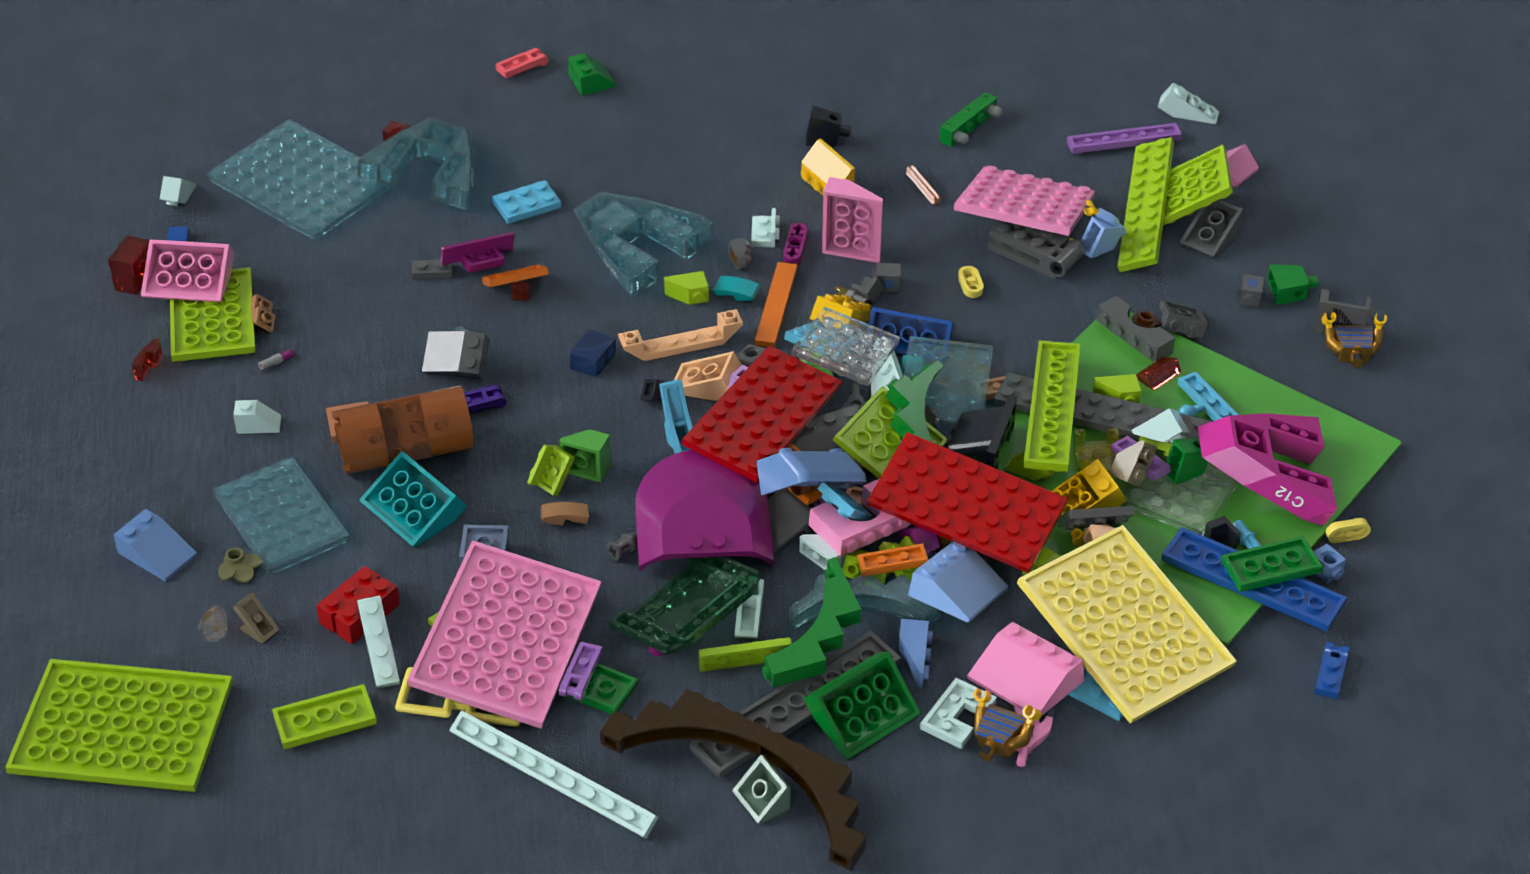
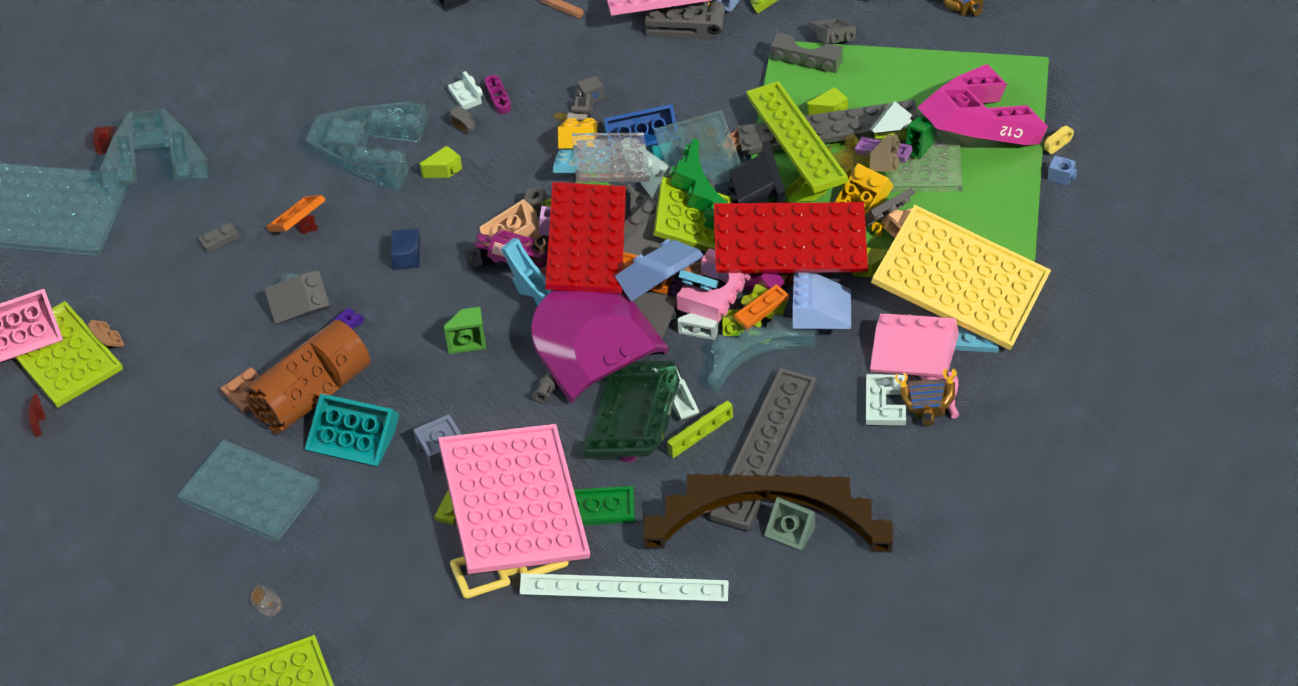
camera: 25 degrees left, 5 degrees up
(153, 545) = (165, 563): medium blue slope -> none
(239, 565) = (250, 546): olive plate -> none
(255, 417) = (168, 422): light aqua slope -> none
(256, 619) = (299, 582): dark tan slope -> none
(276, 359) = (145, 367): light grey piece -> none
(324, 716) = (412, 630): lime plate -> none
(344, 604) = (373, 528): red piece -> none
(378, 642) = (415, 552): light aqua plate -> none
(479, 253) = (252, 208): magenta bracket -> none
(521, 62) = (161, 35): coral plate -> none
(526, 202) = (254, 149): medium azure plate -> none
(551, 469) = (447, 354): lime bracket -> none
(557, 512) = (476, 385): medium nougat slope -> none
(580, 670) = (588, 499): medium lavender plate -> none
(588, 74) = (226, 23): green slope -> none
(697, 393) = (501, 238): none -> magenta brick
(727, 324) = (495, 183): light nougat slope -> none
(738, 287) = (485, 147): teal slope -> none
(776, 304) = (518, 148): orange tile -> none
(806, 656) = (750, 363): green arch -> none
(824, 163) = (486, 25): slope -> none
(851, 221) = (541, 56): bright pink slope -> none
(863, 704) = (815, 425): green slope -> none
(913, 648) = (817, 364): medium blue slope -> none
(970, 281) = (655, 67): light yellow plate -> none
(1146, 320) = (808, 42): reddish brown animal -> none
(1159, 372) = (845, 78): clear red slope -> none
(1205, 398) = (897, 86): medium azure plate -> none
(1222, 531) = (978, 182): black panel -> none
(1246, 537) = (996, 176): medium azure axle -> none
(1271, 563) = (1029, 187): green tile -> none
(1293, 597) = (1021, 204): blue plate -> none
(1331, 670) = (1117, 247): blue plate -> none

